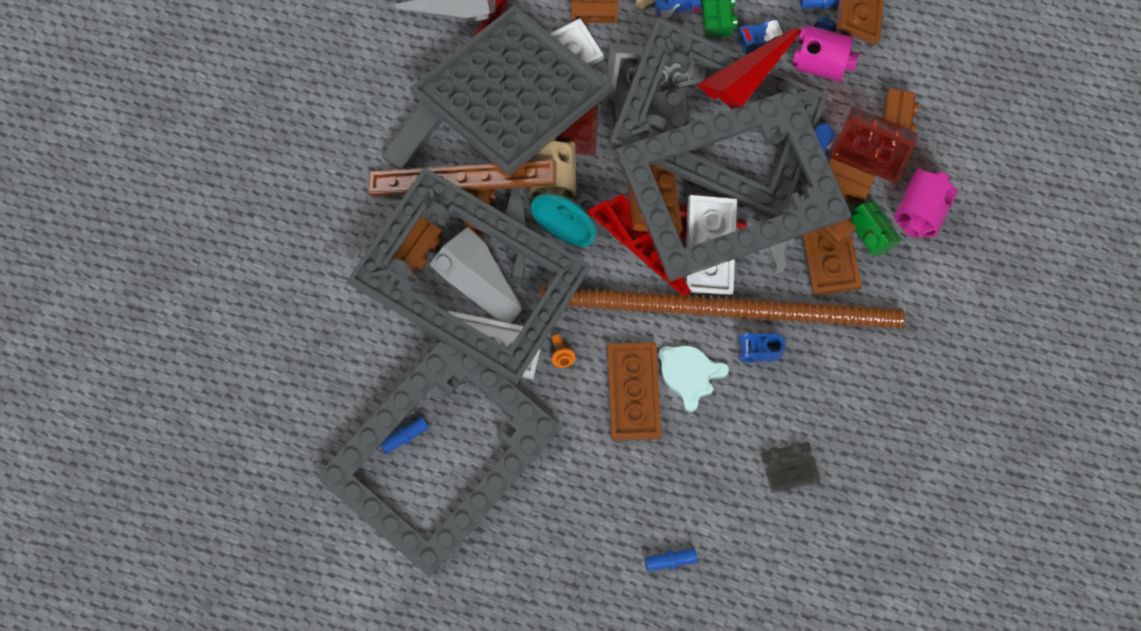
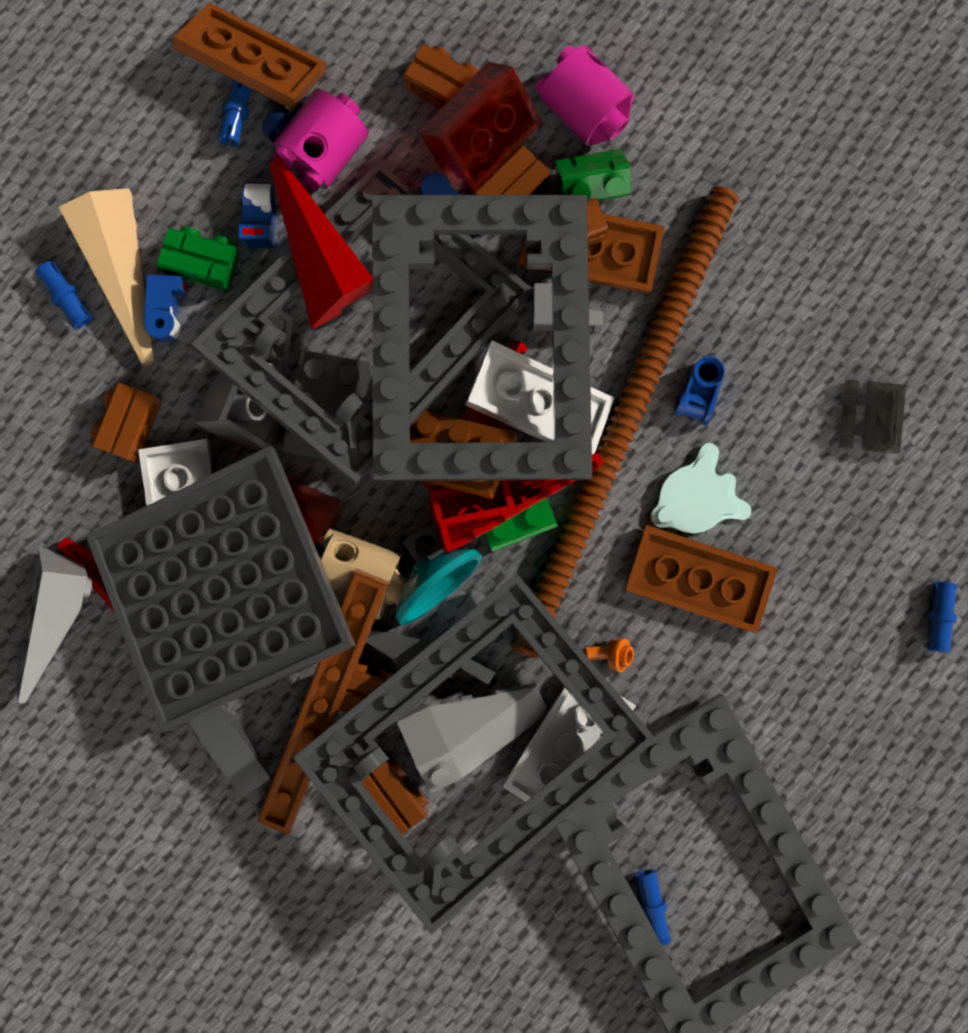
camera: 70 degrees left, 15 degrees up
(624, 263) = (521, 527): none -> green brick

